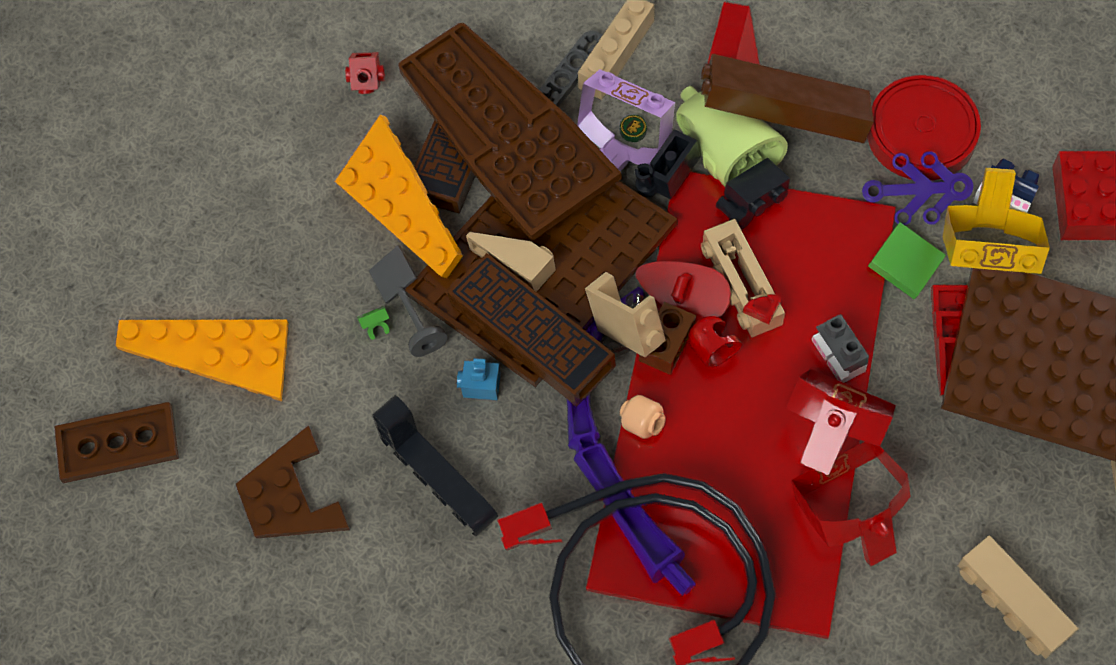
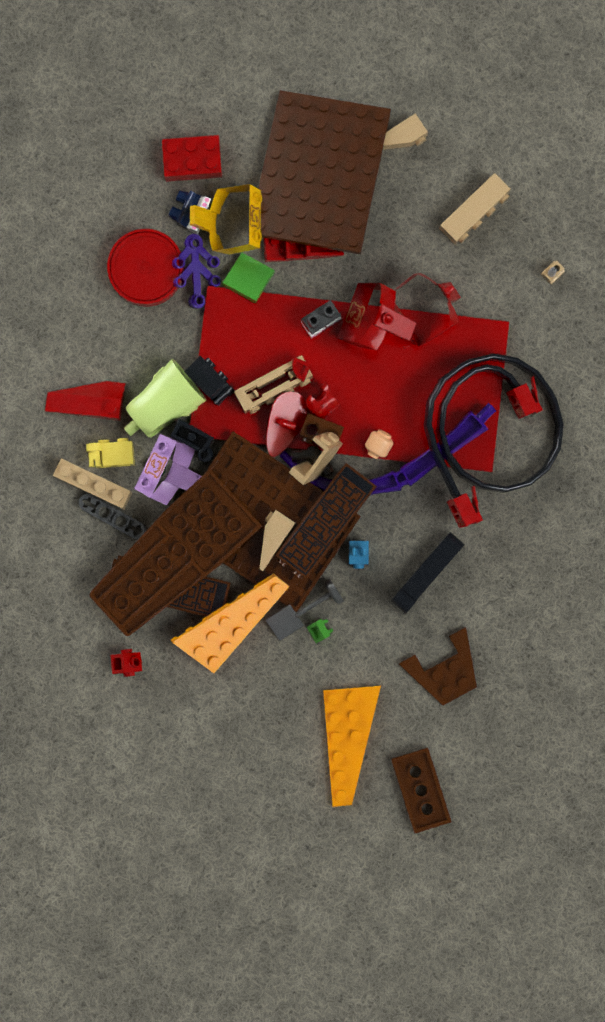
camera: 100 degrees left, 20 degrees up
(657, 66) = (111, 454): none -> light yellow hinge
(787, 98) = (137, 360): reddish brown brick -> none

